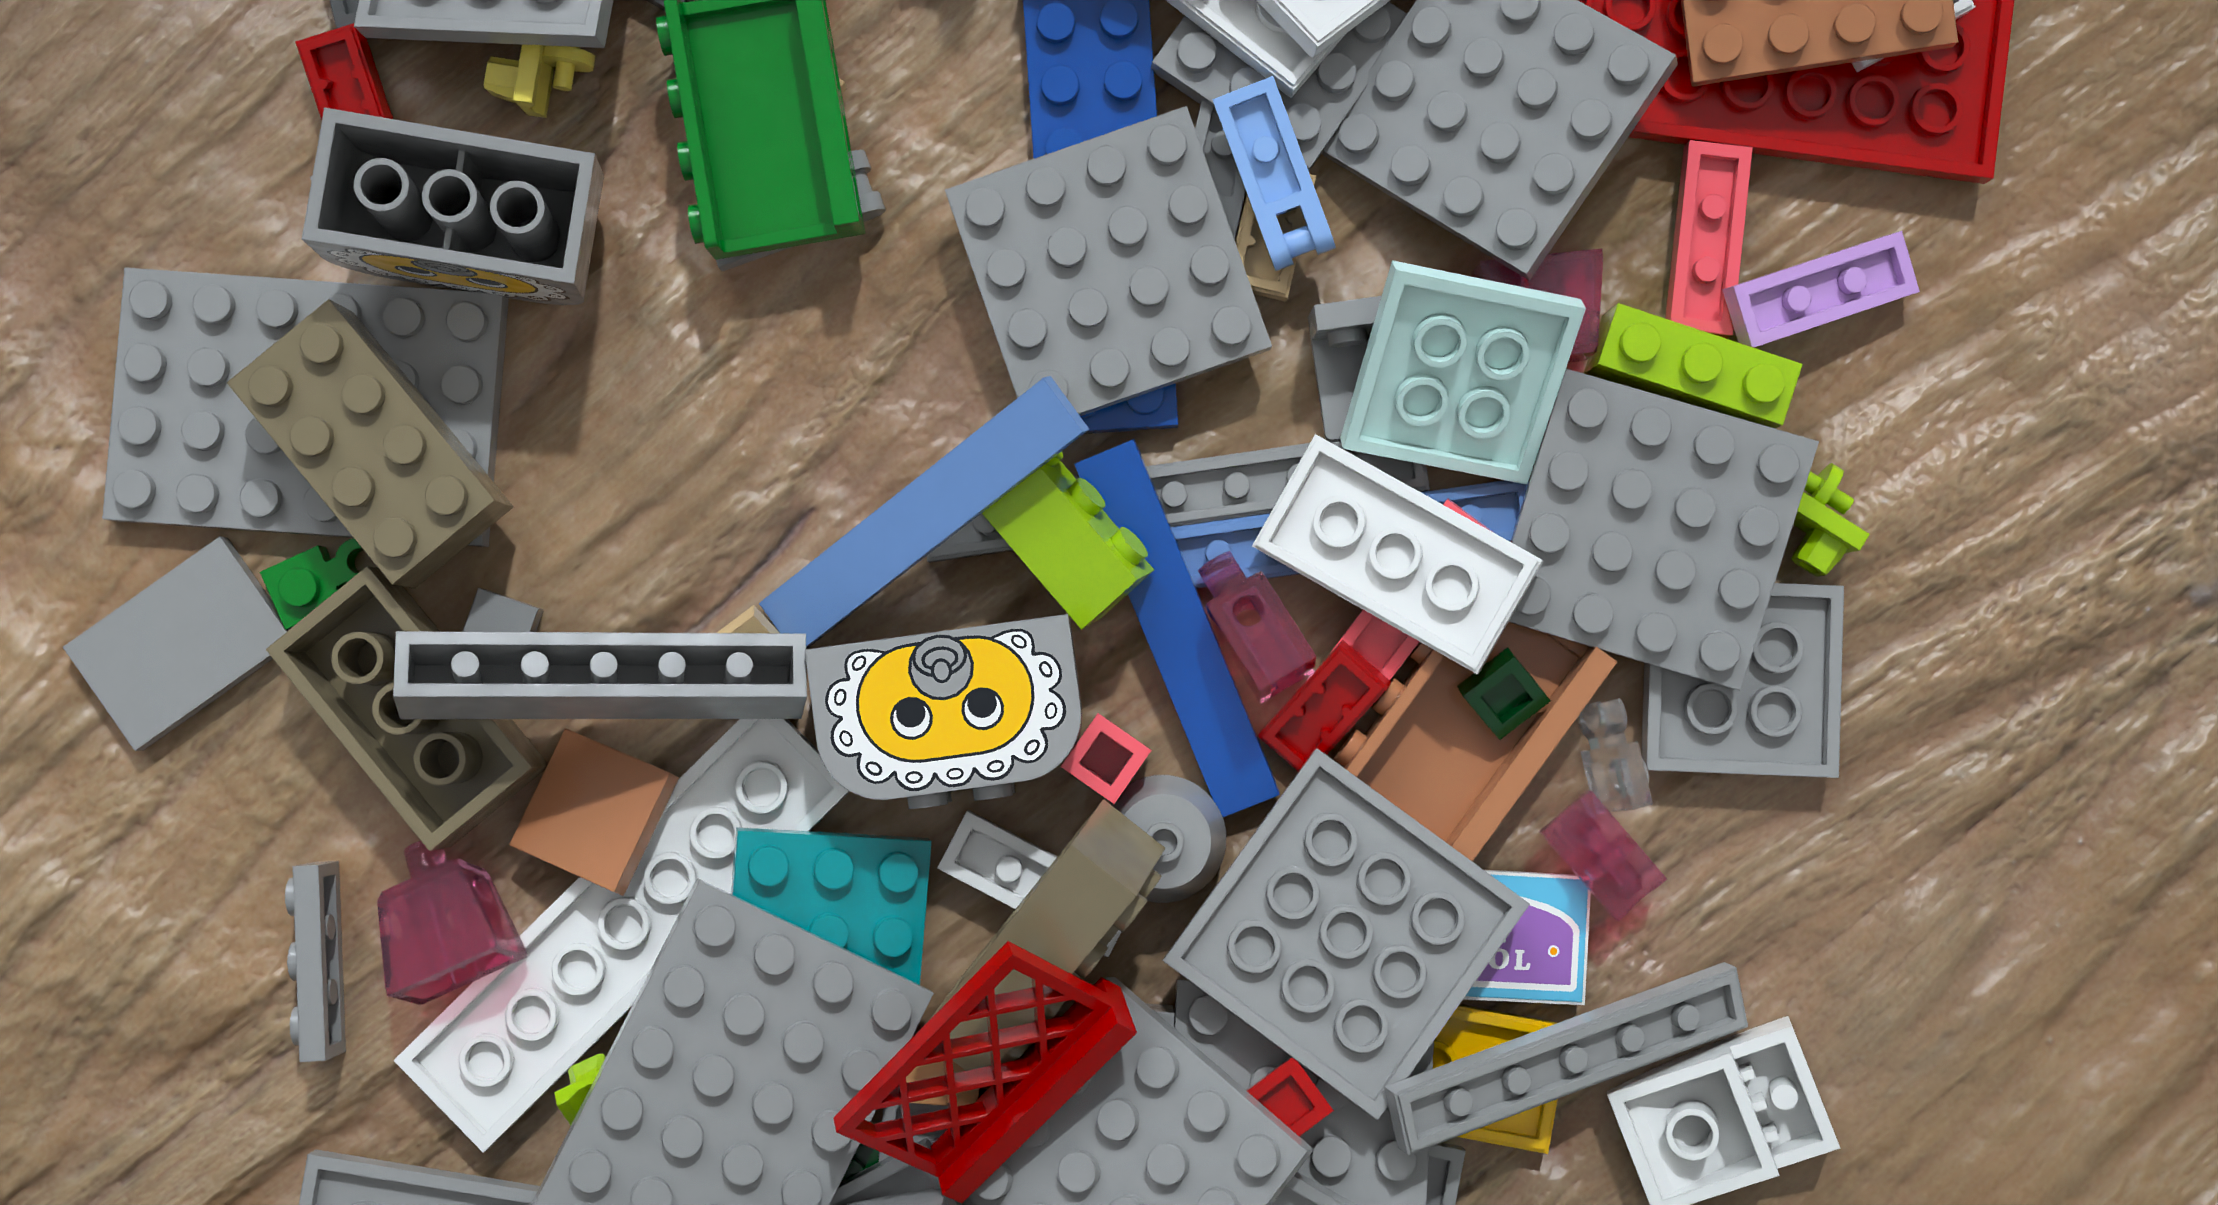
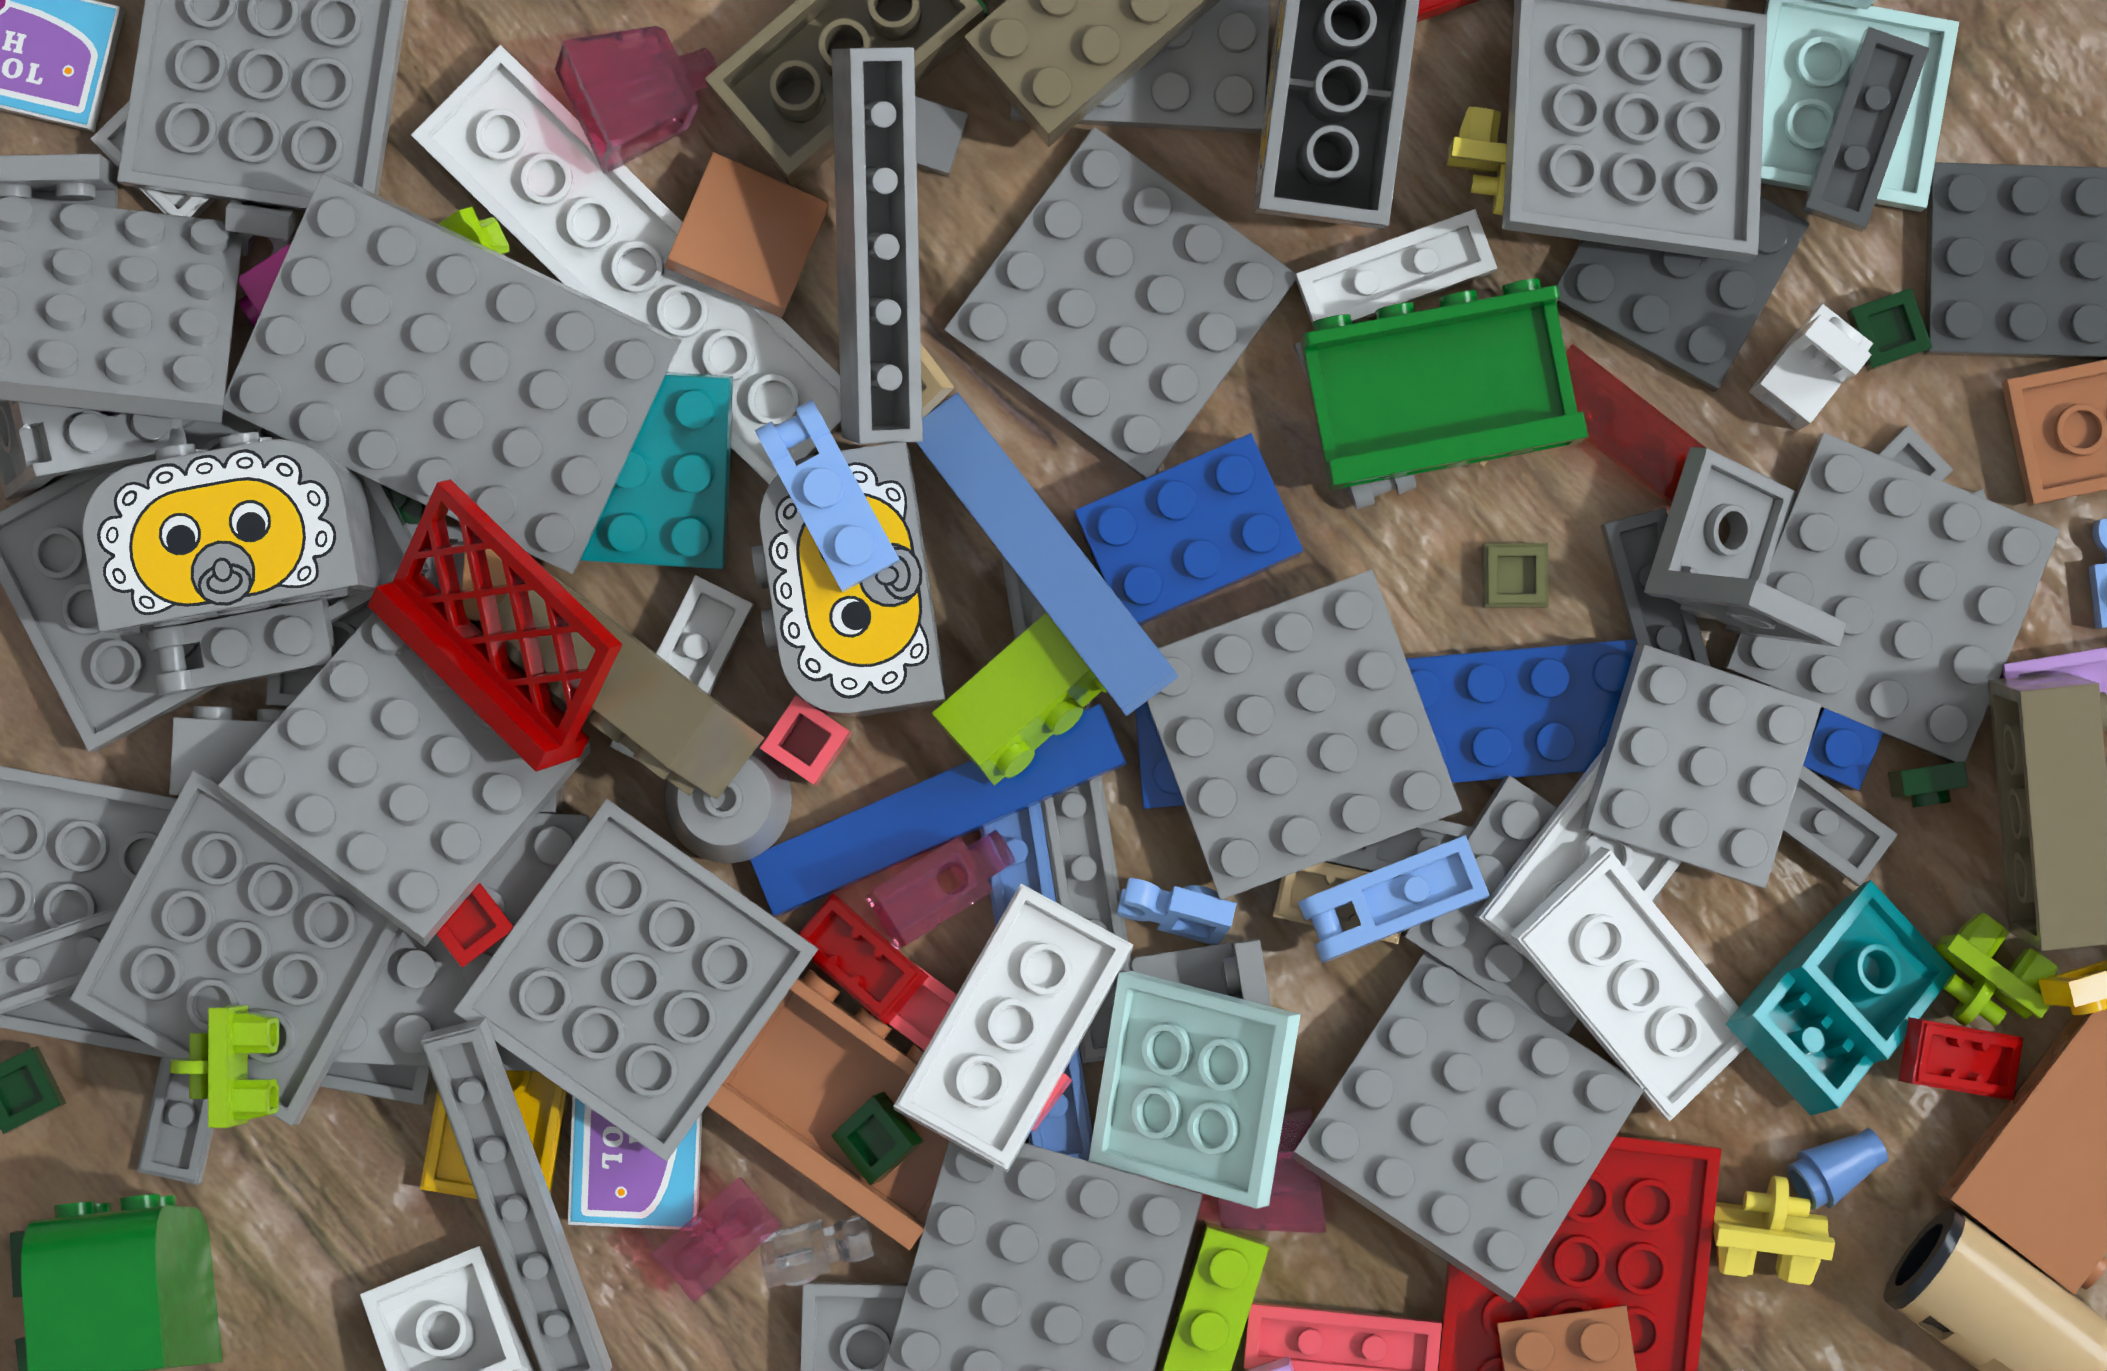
camera: 90 degrees right, 0 degrees up
(646, 163) = (1398, 270): none -> white plate
(674, 439) = (1121, 304): none -> light grey plate
(861, 727) = (829, 498): none -> light blue plate
(900, 370) = (1189, 531): none -> blue brick
(953, 57) = (1515, 575): none -> olive tile
(1282, 384) = (1185, 912): none -> light blue plate

